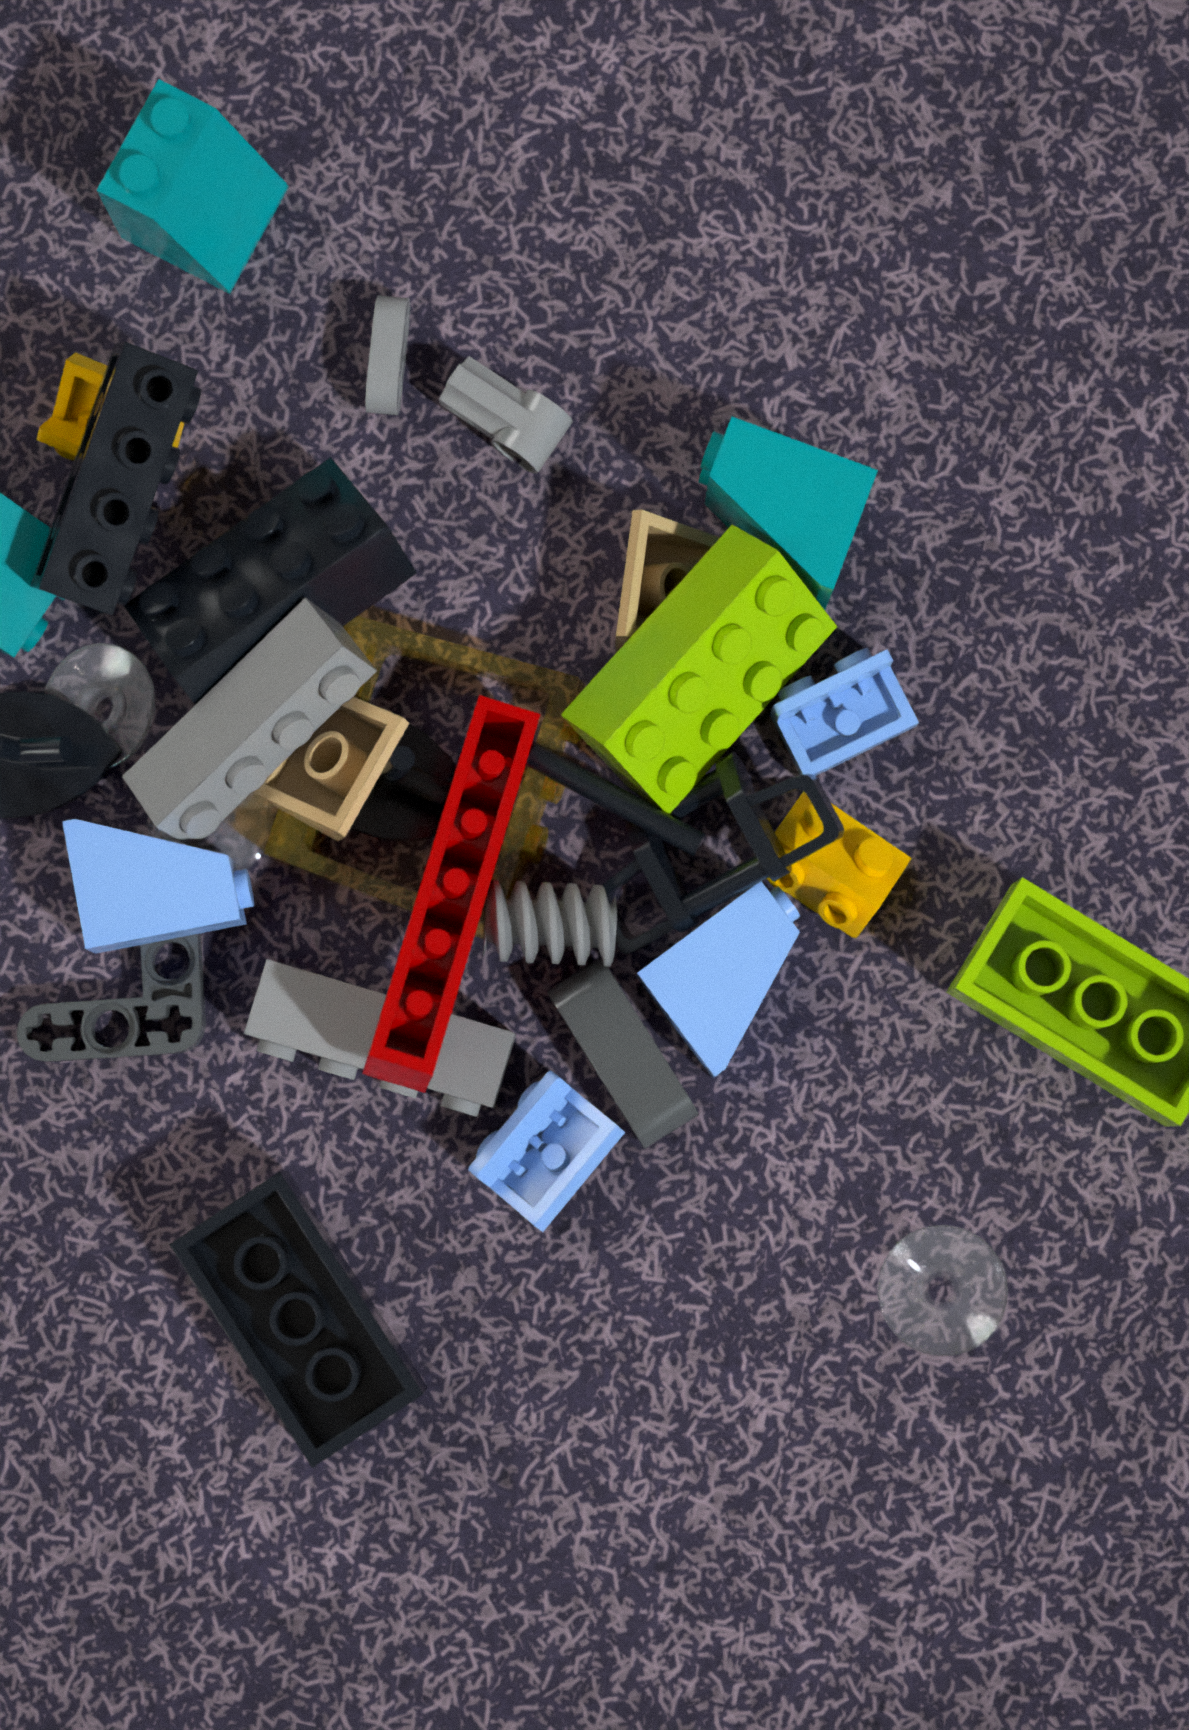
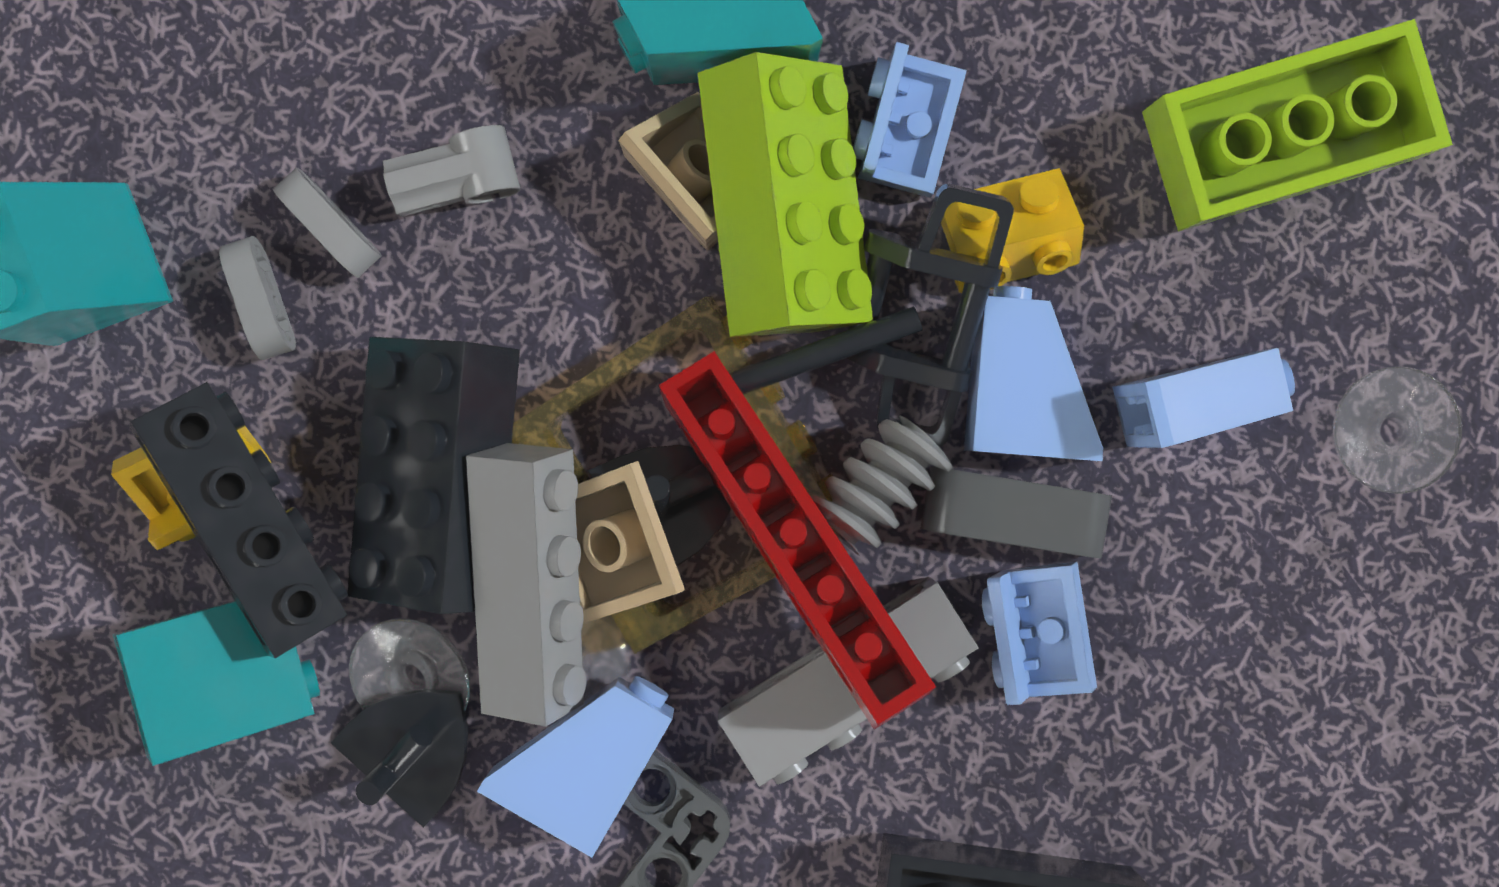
camera: 50 degrees left, 5 degrees up
(286, 352) = (257, 298): none -> light grey beam
(836, 1117) = (1204, 399): none -> light blue slope

